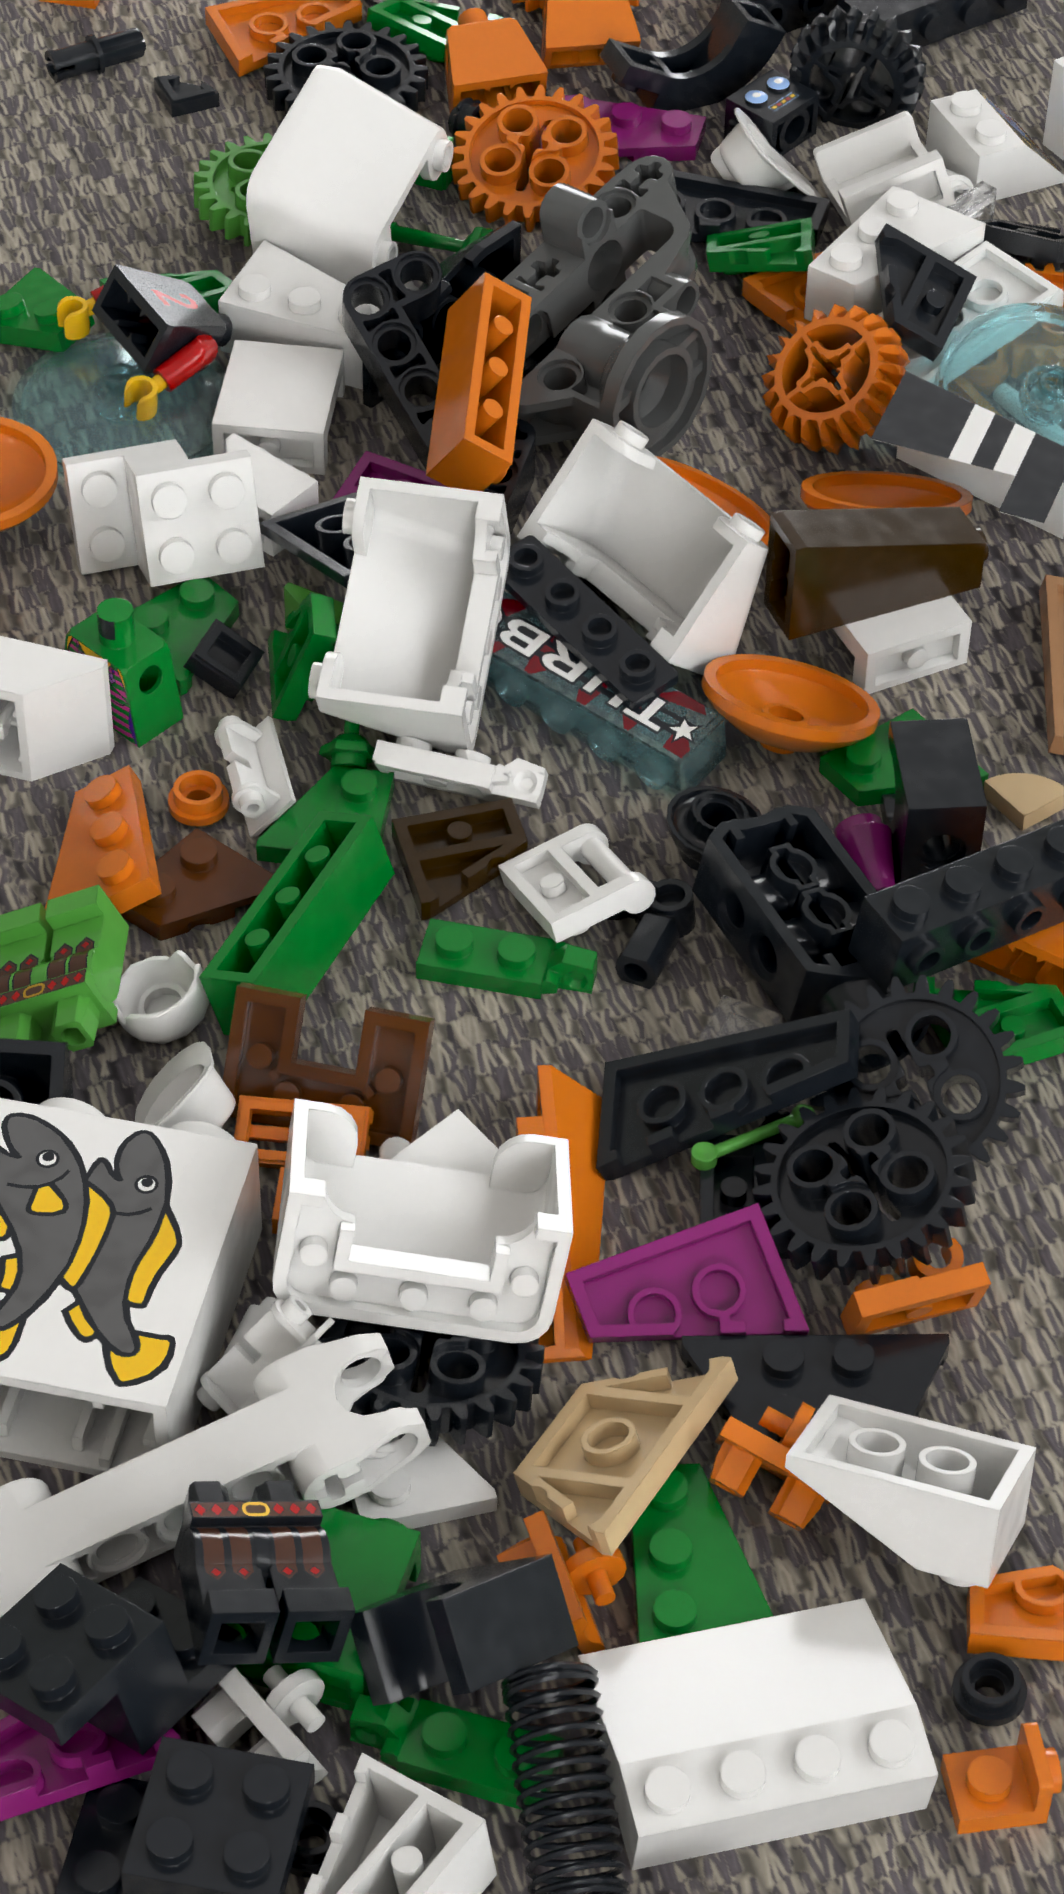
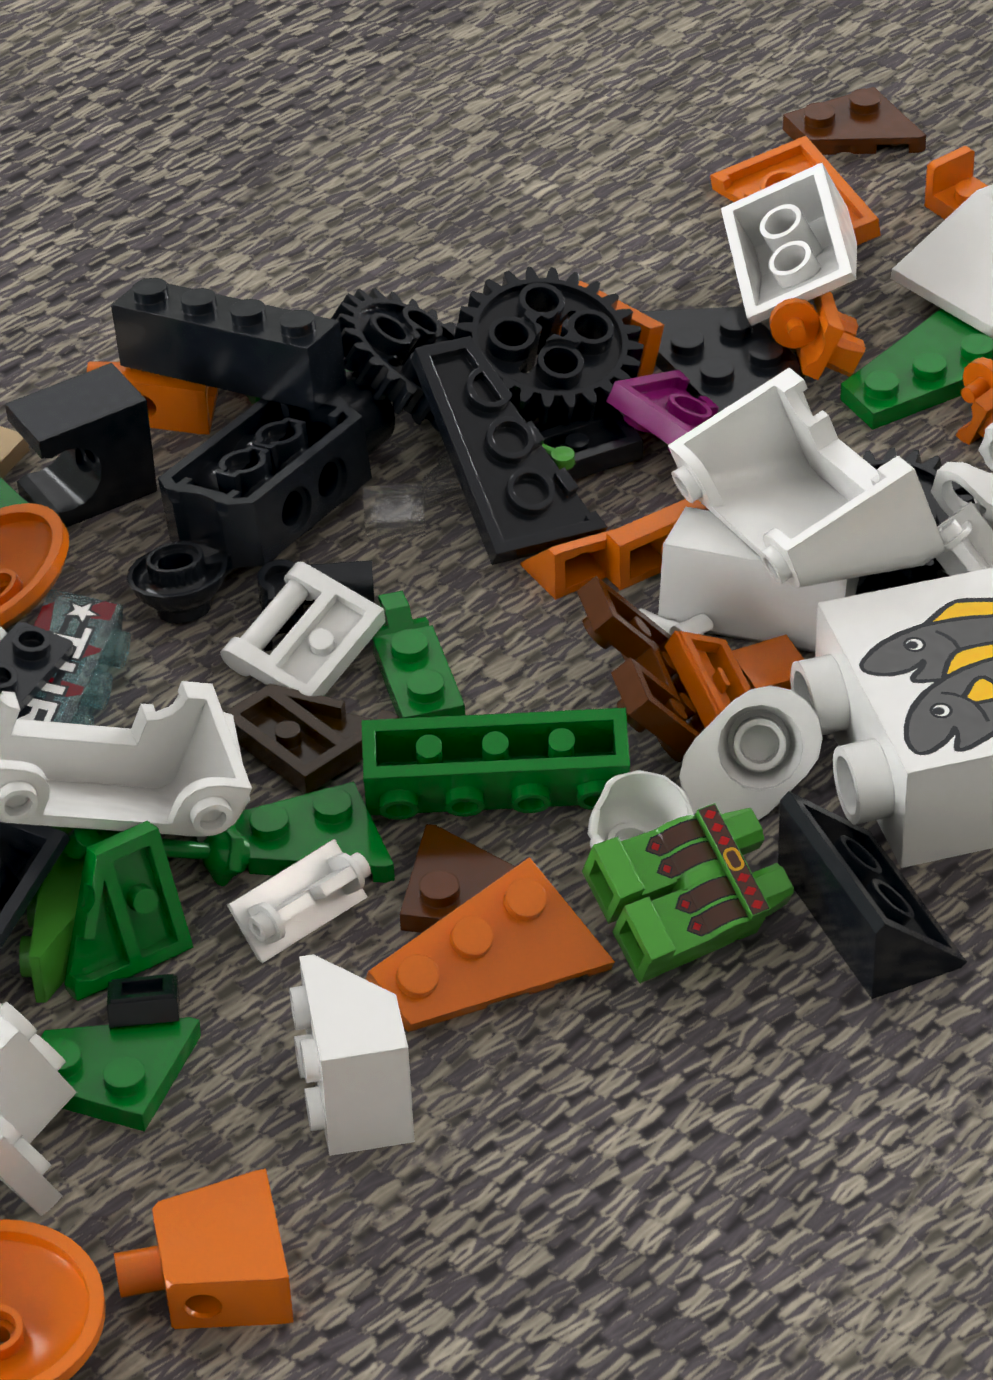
camera: 115 degrees left, 5 degrees down
(139, 670) = (241, 1018): green torso -> none
(198, 799) = (355, 935): orange plate -> none
(618, 1448) = (893, 394): tan wing -> none
(870, 847) = (131, 501): magenta cone -> none
(990, 1671) = (900, 218): black plate -> none

